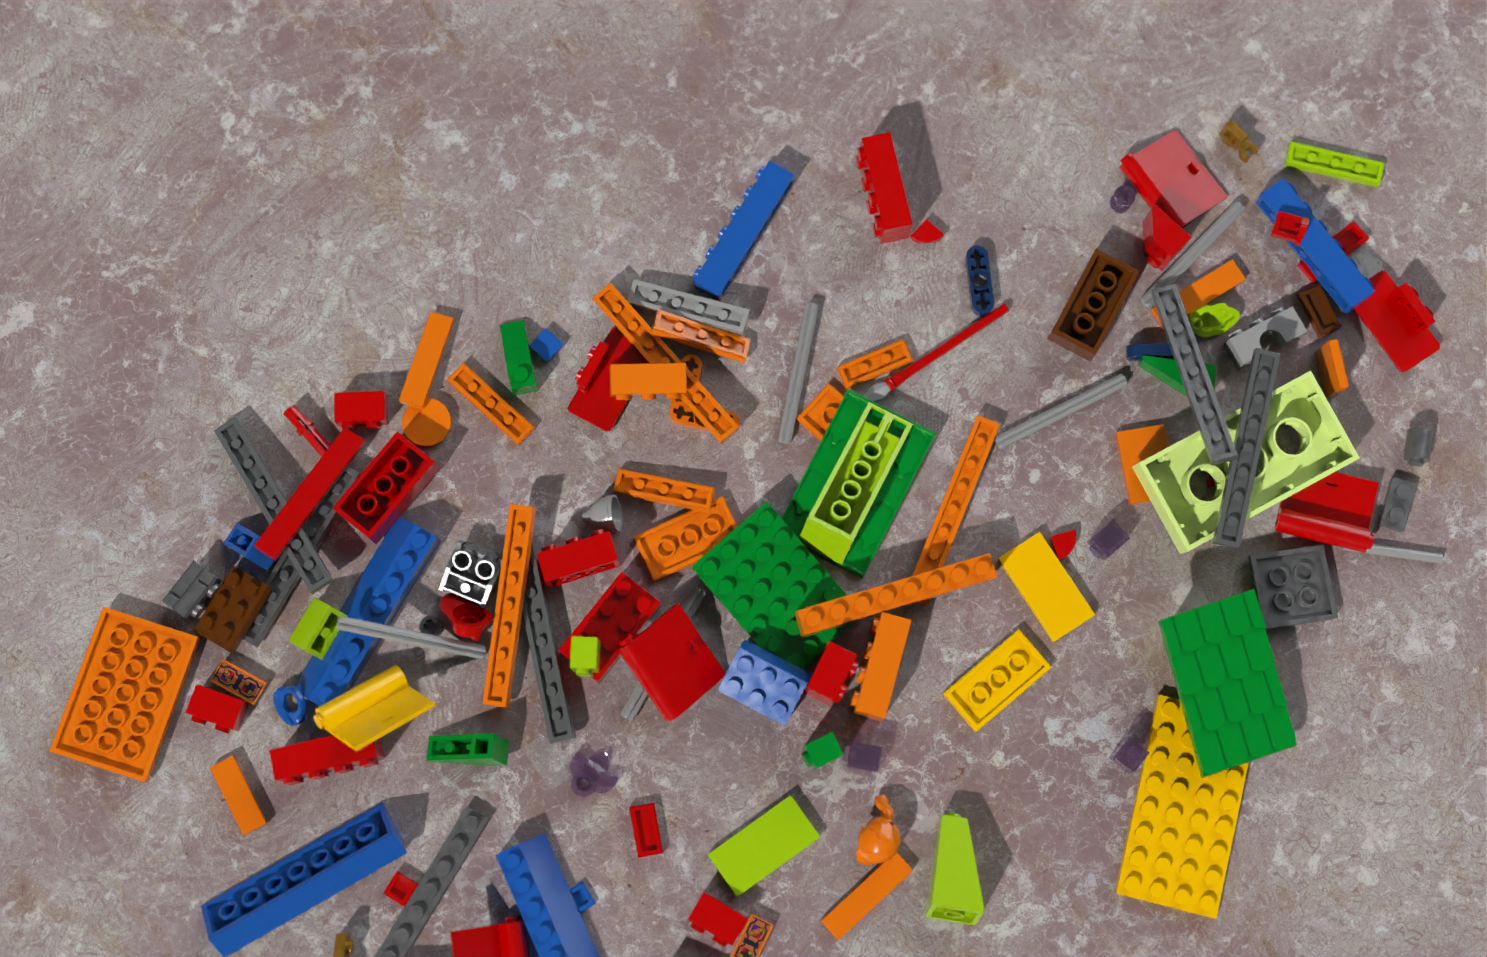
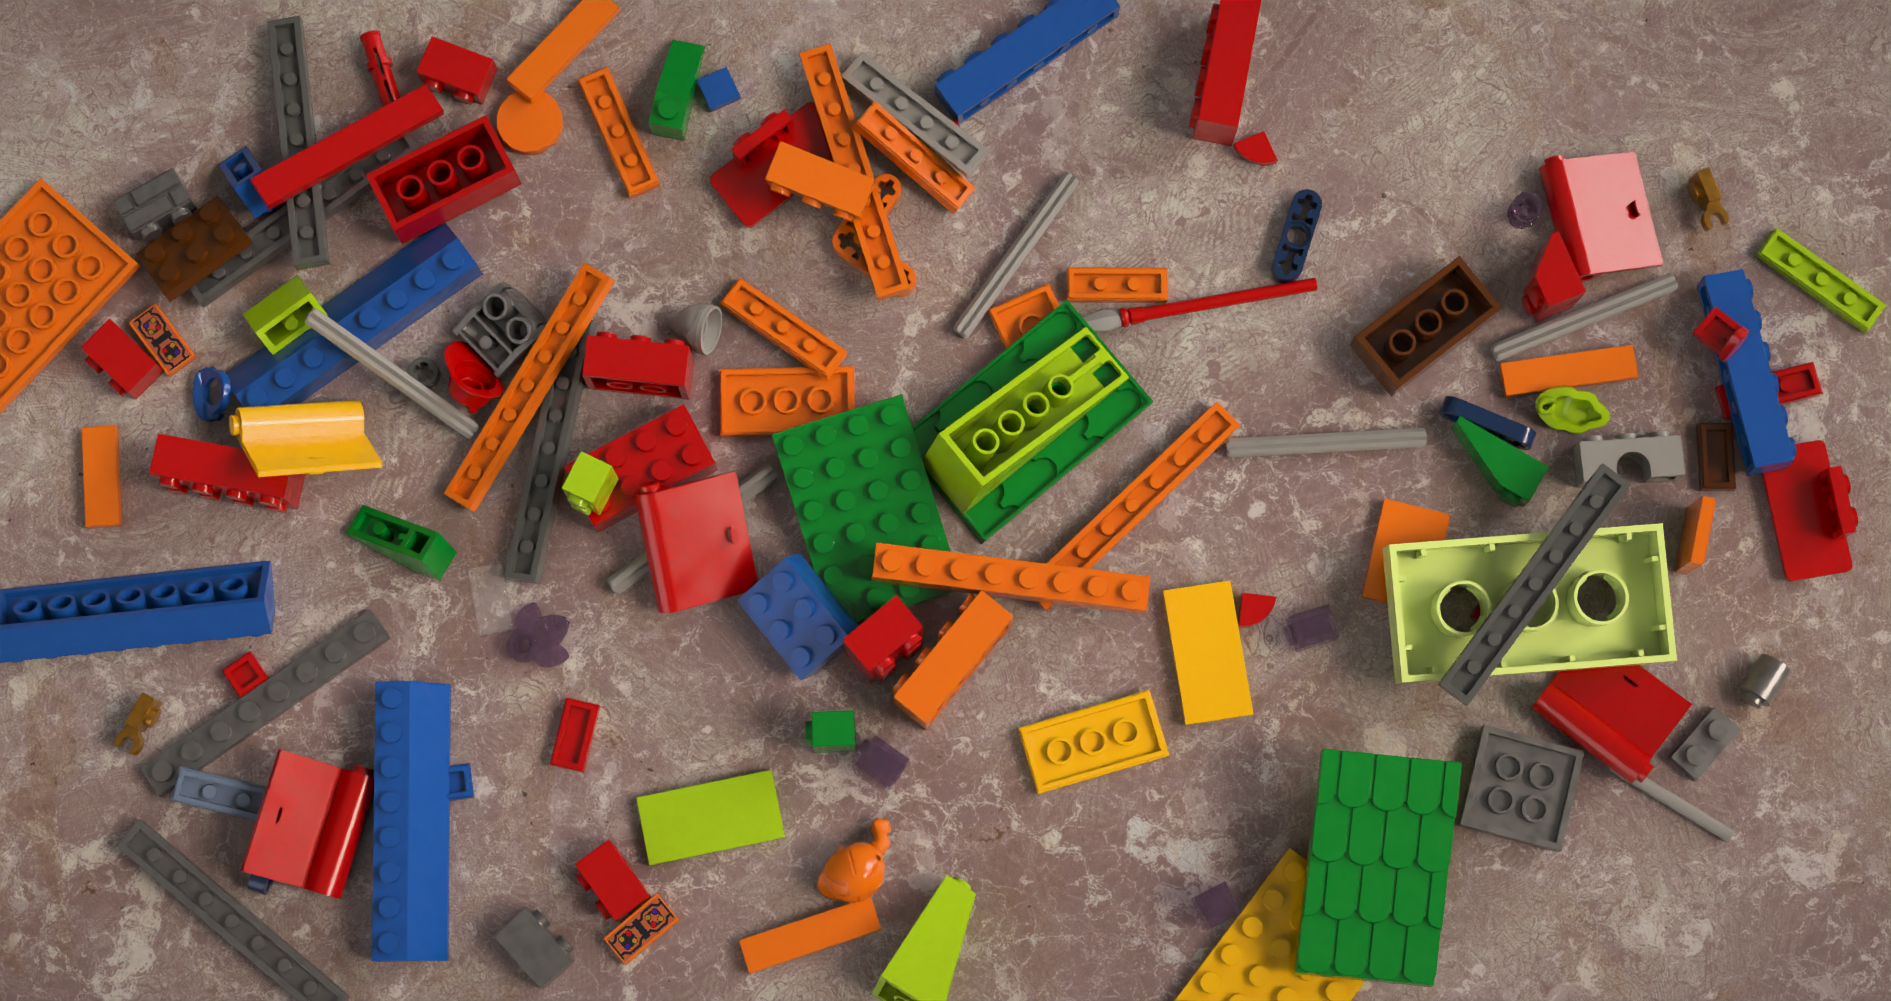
camera: 25 degrees right, 0 degrees up
(1194, 375) = (1510, 465): flat silver plate -> none

